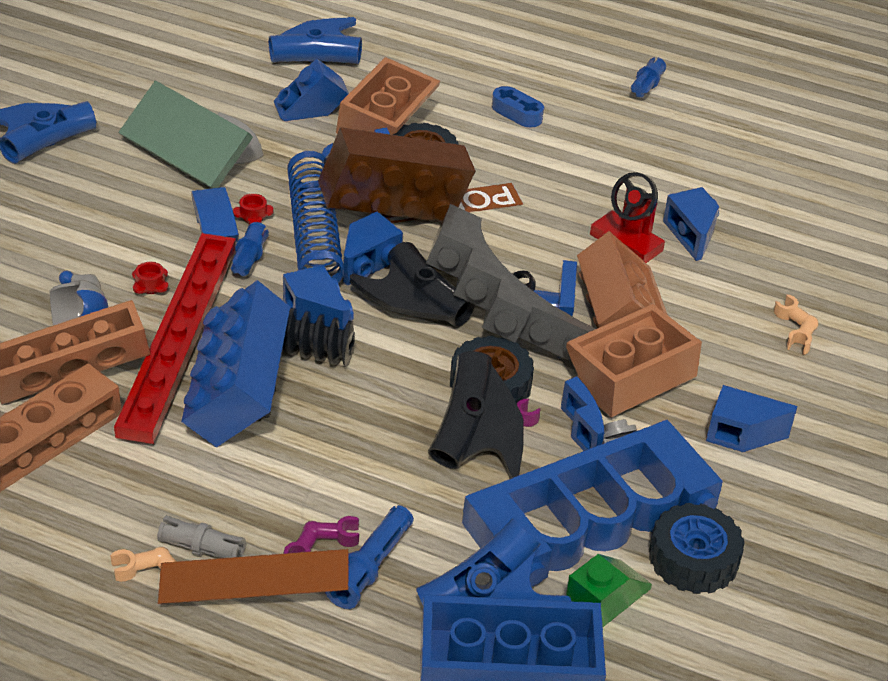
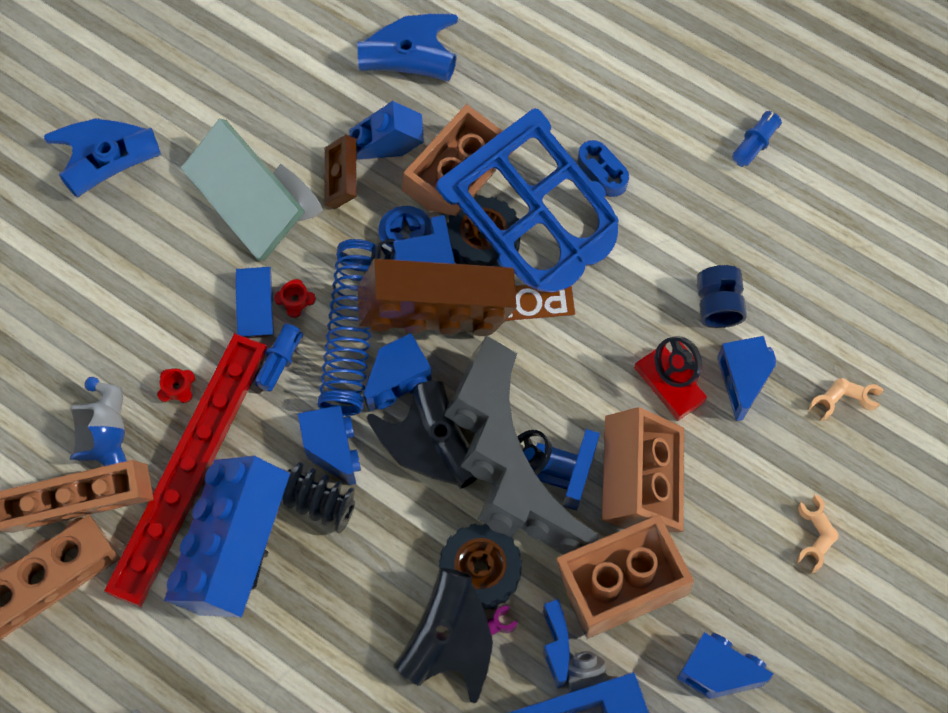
camera: 15 degrees right, 25 degrees up
(275, 122) = (340, 172): none -> reddish brown plate
(510, 160) = (574, 251): none -> blue window
(656, 163) = (721, 296): none -> dark blue wheel
(807, 231) = (844, 387): none -> light nougat arm

